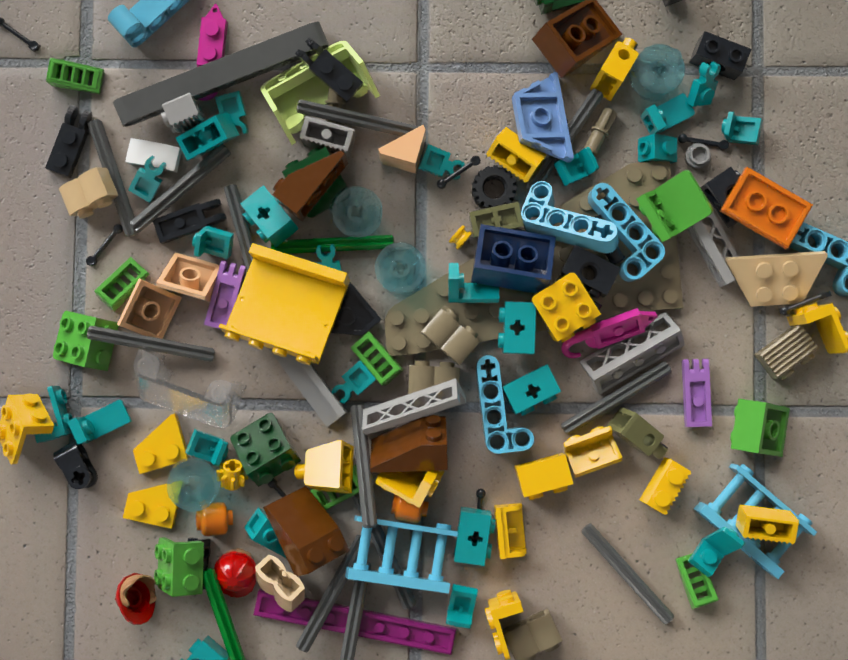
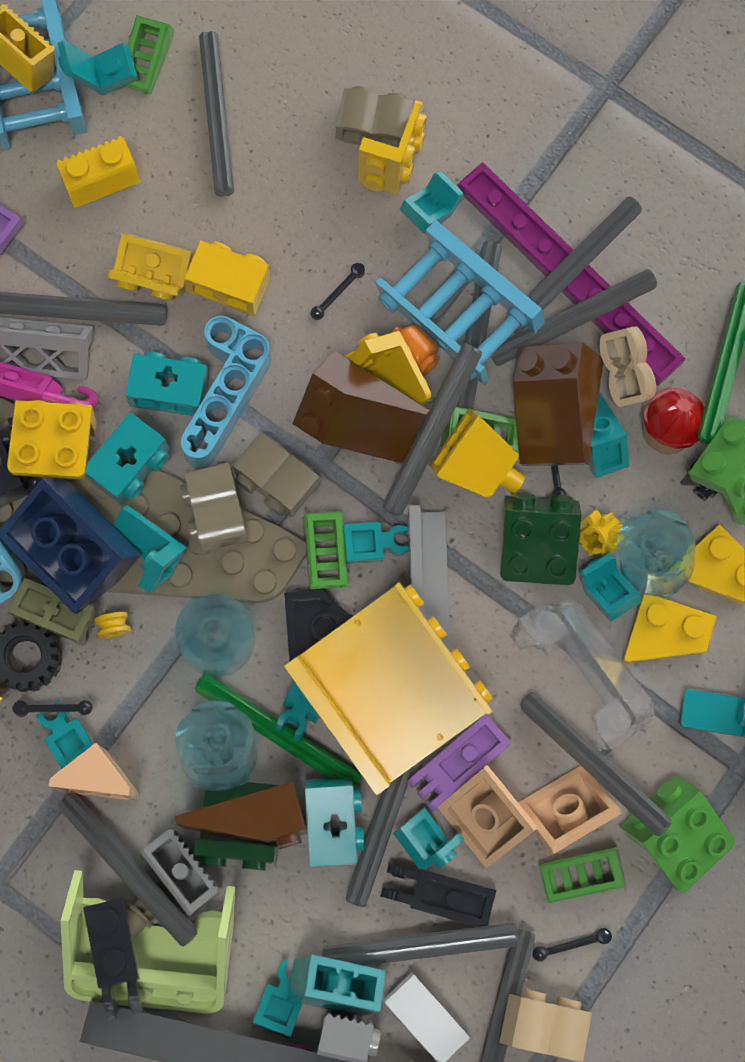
camera: 150 degrees left, 10 degrees down
(146, 181) = (457, 985): teal plate -> none
(214, 519) = (658, 492): orange head -> none
(412, 406) = (323, 454): light grey fence -> none
(473, 551) = (356, 285): teal brick -> none
(510, 530) = (315, 247): yellow hinge -> none
(638, 433) = (81, 241): olive torso -> none

